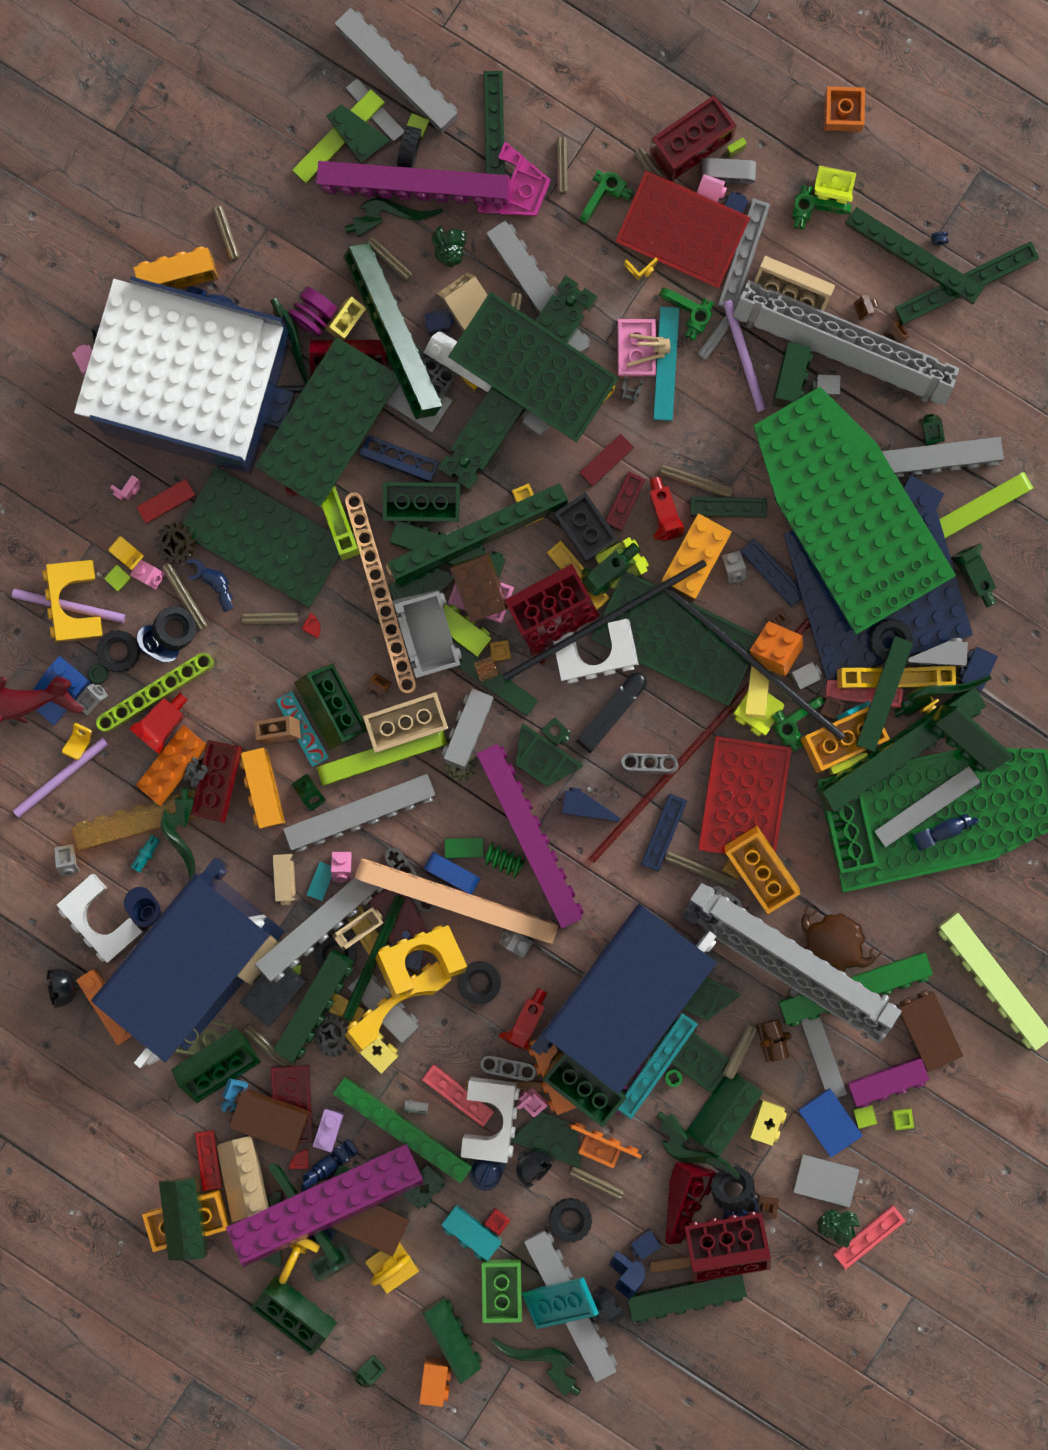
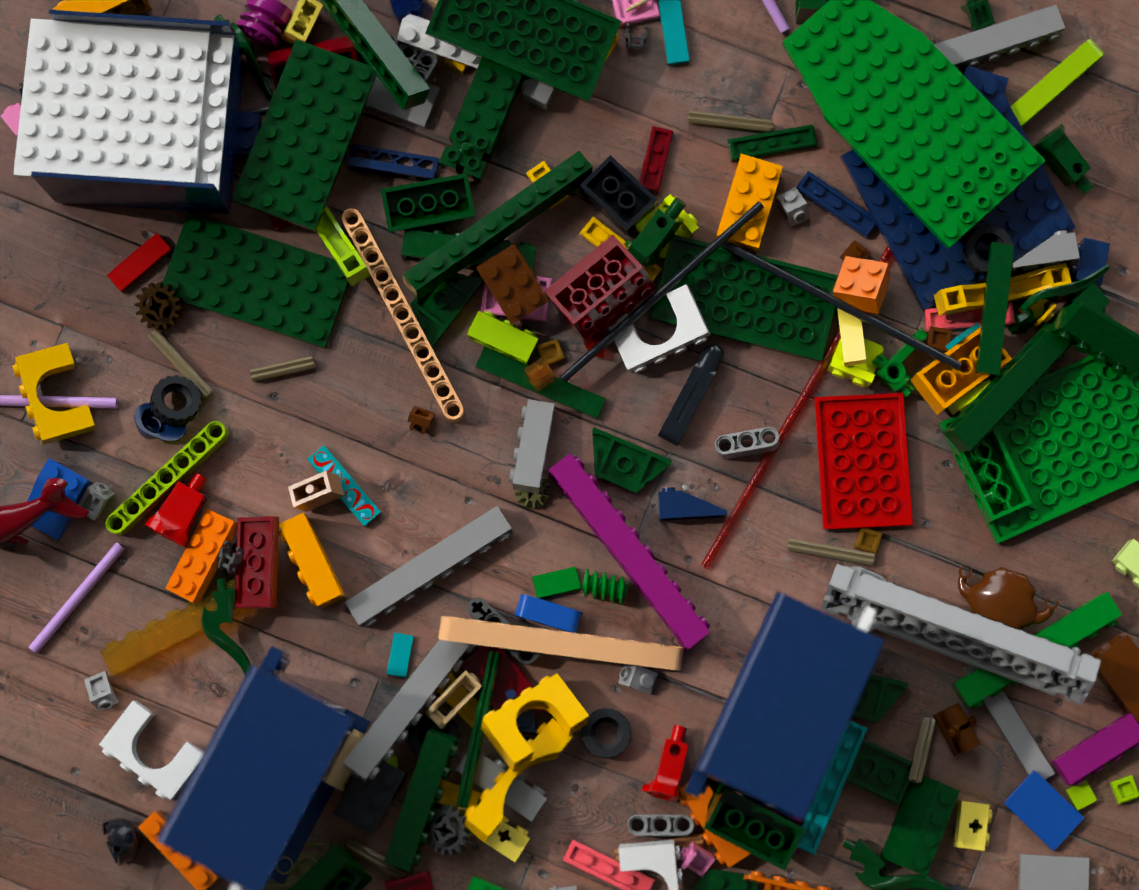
camera: 15 degrees left, 5 degrees down
(77, 742) = (89, 552): yellow bracket -> none
(98, 674) = (98, 471): dark green tile -> none
(103, 651) = (99, 436): black tyre -> none
(117, 578) = (100, 359): lime tile -> none
(125, 552) = (103, 328): yellow bracket -> none
(131, 488) = (96, 255): bright pink bracket -> none
(142, 906) = (197, 725): dark blue piece -> none
(145, 853) = (191, 664): teal pin -> none
(147, 574) = (133, 347): bright pink bracket -> none
(216, 580) = (211, 337): dark blue piece -> none
(284, 878) = (357, 660): tan window -> none
(306, 790) = (363, 553): dark green bracket -> none
(312, 626) = (332, 368): red tile -> none
(331, 706) = (371, 453): dark green slope -> none
(341, 867) = (420, 633): bright pink bracket -> none
(369, 760) = (440, 497): lime beam -> none
(405, 722) = (460, 452): tan slope -> none
(426, 633) = (463, 346): light grey windscreen -> none
(562, 738) = (642, 433): dark green bracket -> none
(606, 460) = (625, 118): dark red tile -> none
(663, 832) = (779, 518): dark blue tile -> none
(668, 522) = (703, 160): red piece -> none
(668, 1081) = (857, 791): green bush -> none
(762, 870) = (901, 535): light orange brick -> none
(806, 675) = (900, 310): light grey brick -> none
(926, 806) = (1070, 426): light grey tile -> none
(943, 831) = (1095, 449): dark blue piece -> none

